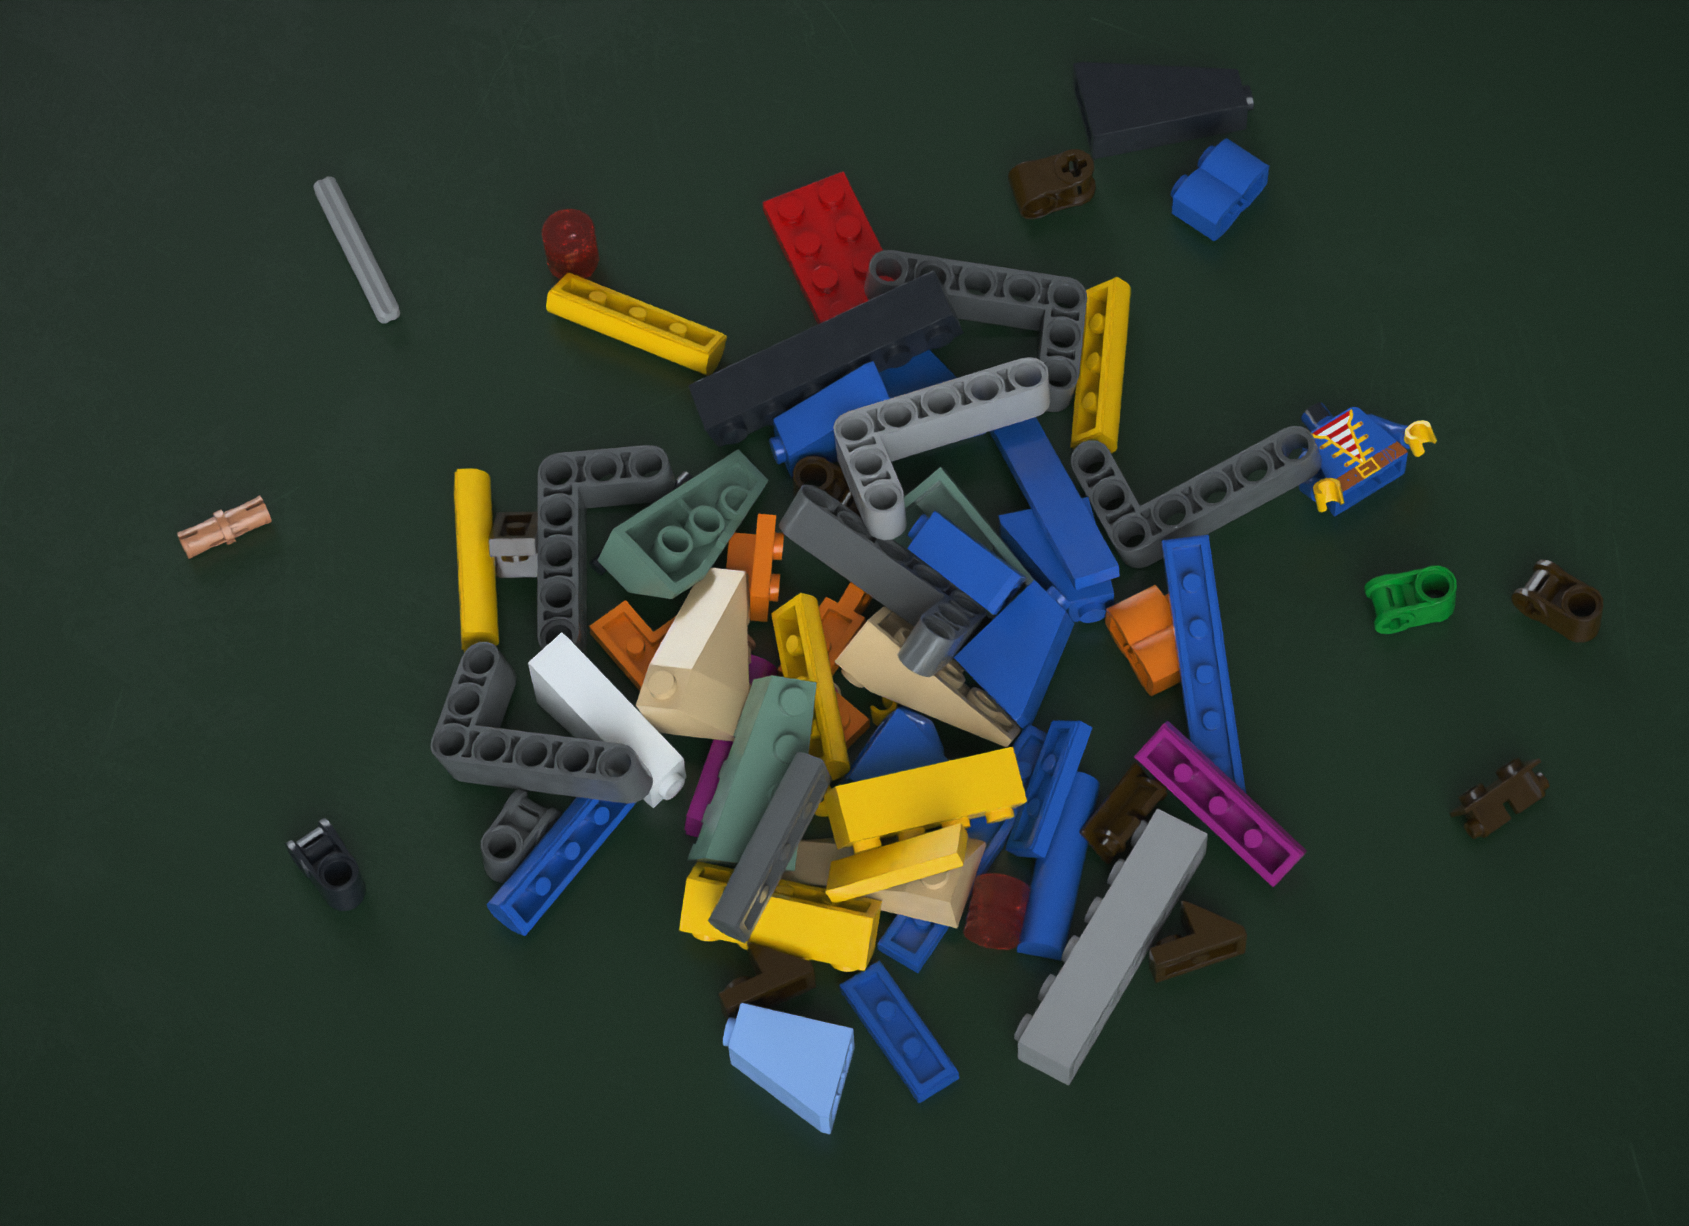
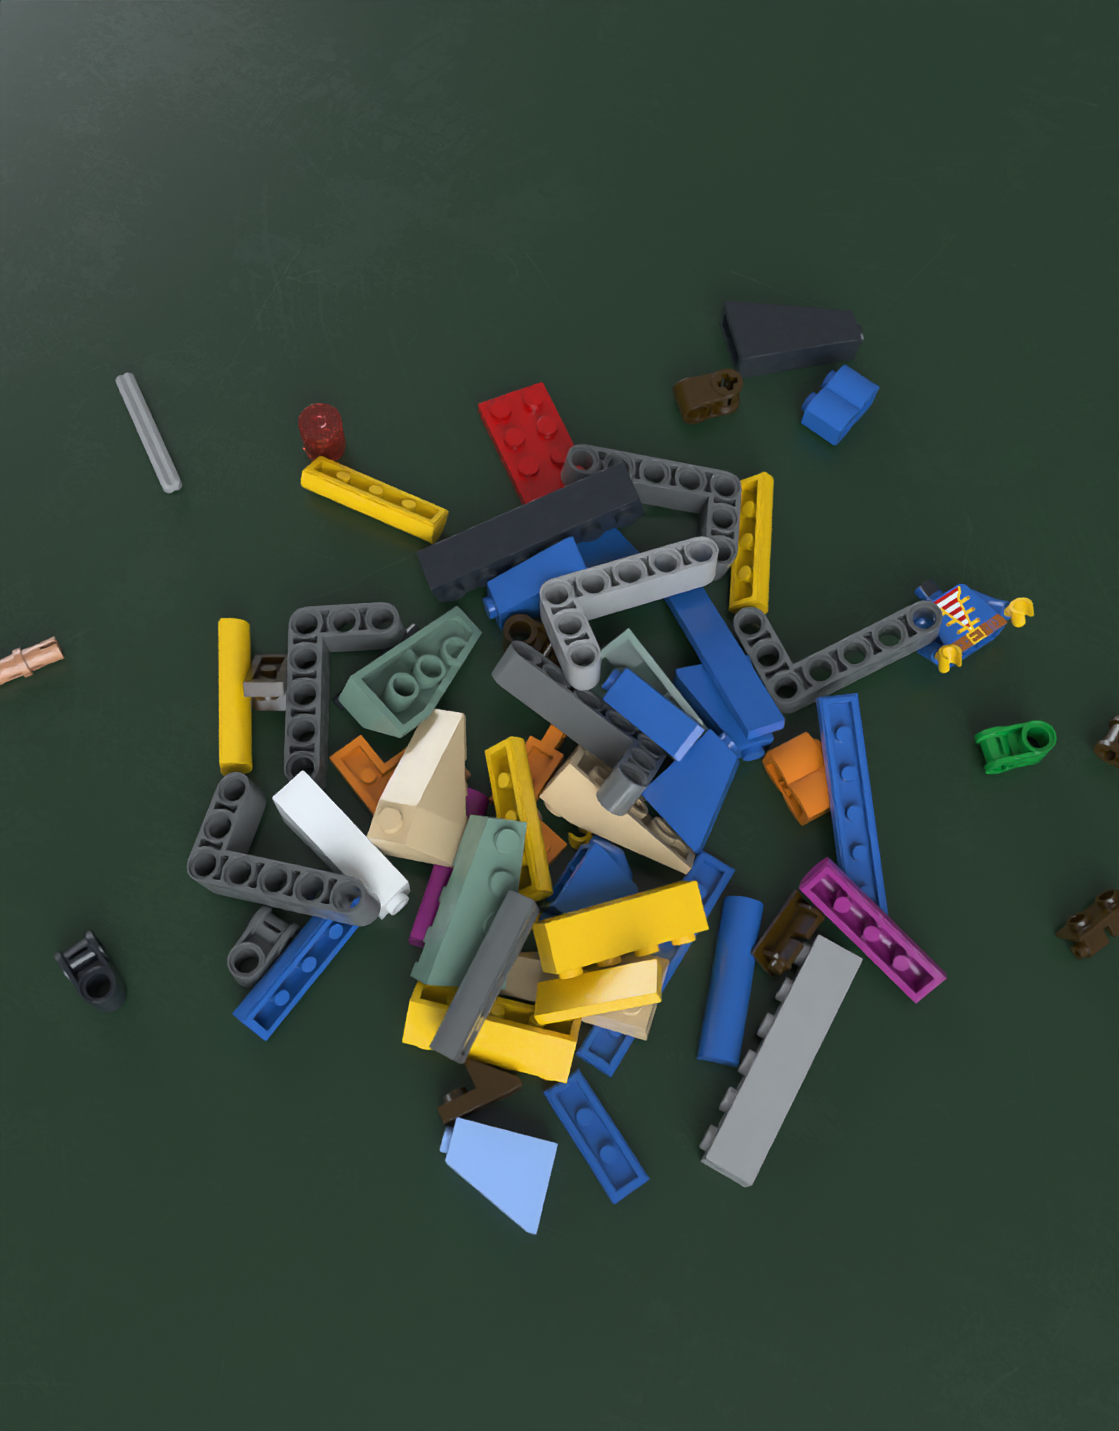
camera: 10 degrees left, 5 degrees up
(755, 556) = (471, 698): orange bracket -> none
(997, 911) = (681, 1025): clear red piece -> none
(1048, 789) = (724, 912): blue tile -> none
(1207, 942) = (862, 1053): dark brown slope -> none

